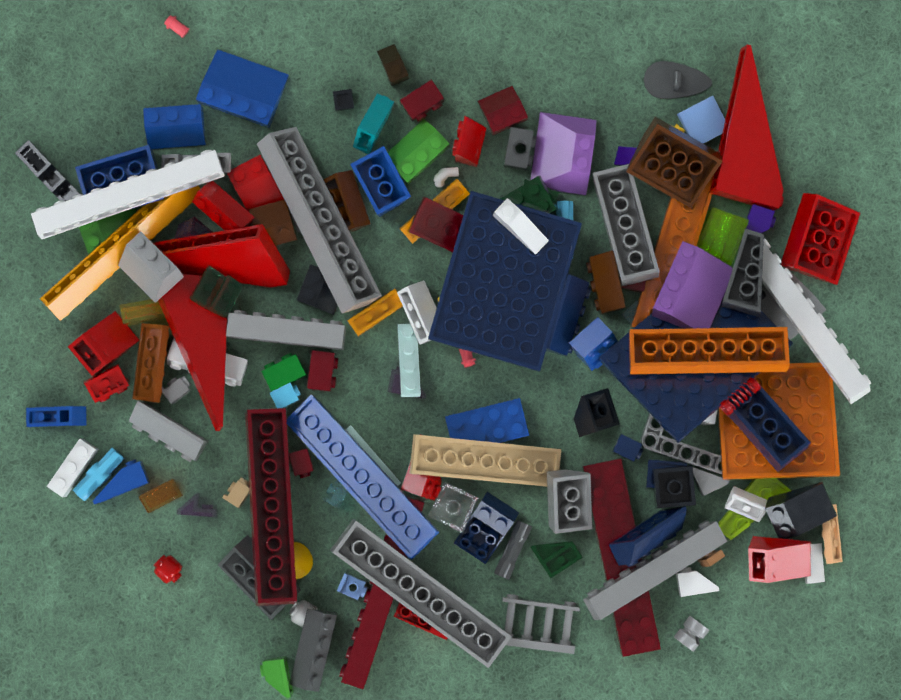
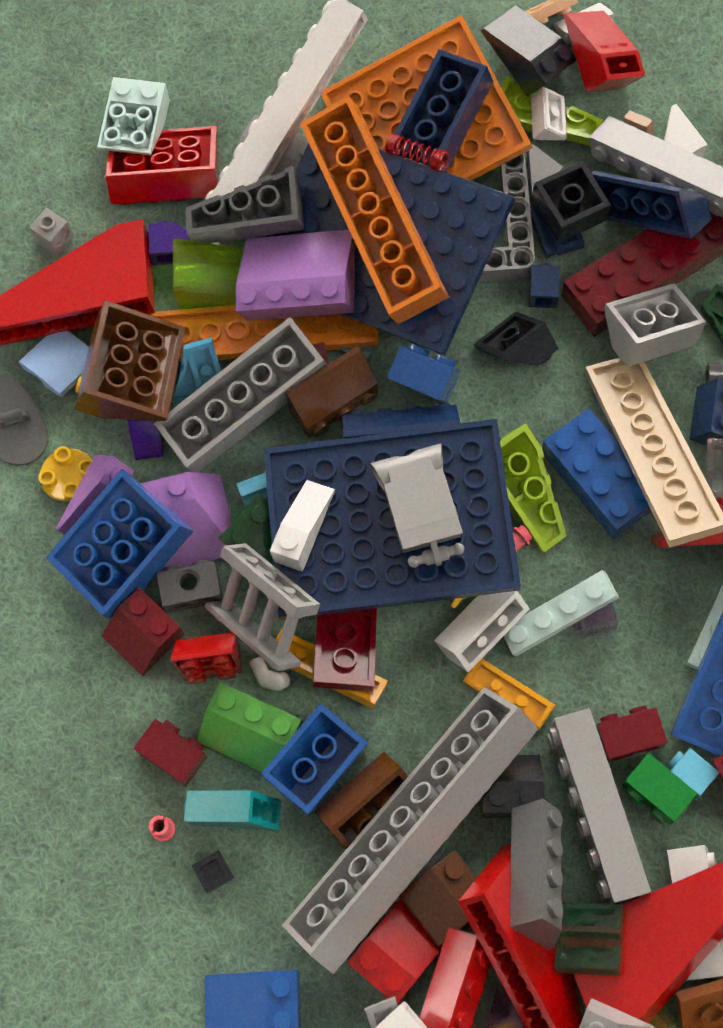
camera: 110 degrees left, 15 degrees down
(264, 277) = (536, 872): none -> dark grey slope
(379, 84) = (168, 831): none -> coral pin
(393, 65) = (131, 818): dark brown slope -> none
(487, 194) = (278, 590): none -> light grey fence
(496, 378) = (530, 488): none -> lime wedge
(500, 299) = (420, 504): none -> light grey piece
(559, 114) = (119, 543): none -> blue slope
(601, 112) = (97, 477): none -> medium lavender slope
(624, 100) = (63, 472): none -> yellow dish
(656, 205) = (196, 368): none -> dark azure wing
(798, 147) = (51, 231): none -> light grey brick
(859, 229) = (134, 116): none -> light aqua slope

